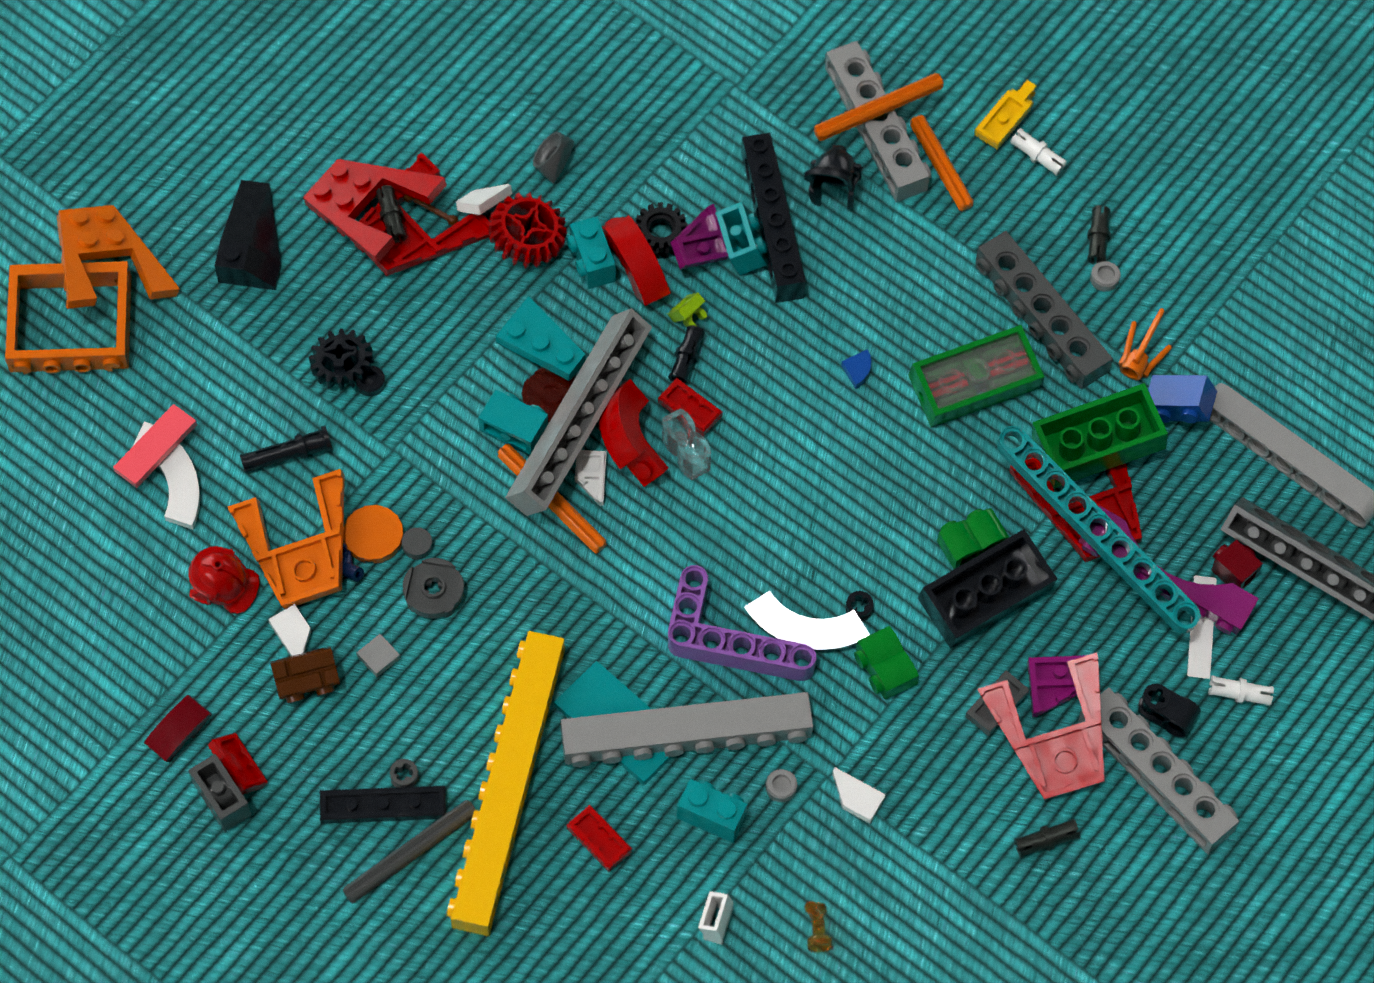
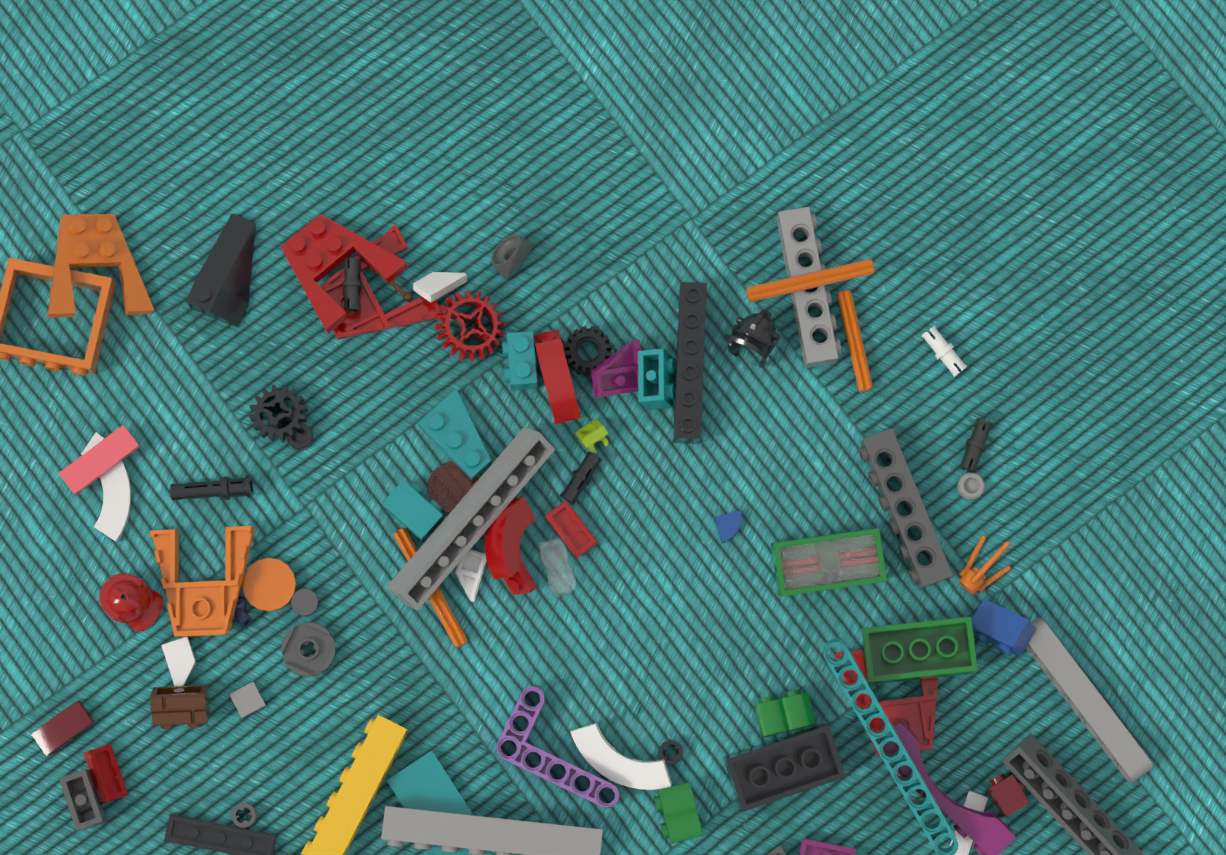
camera: 10 degrees right, 15 degrees up
(1006, 115) = (925, 308): yellow hinge -> none

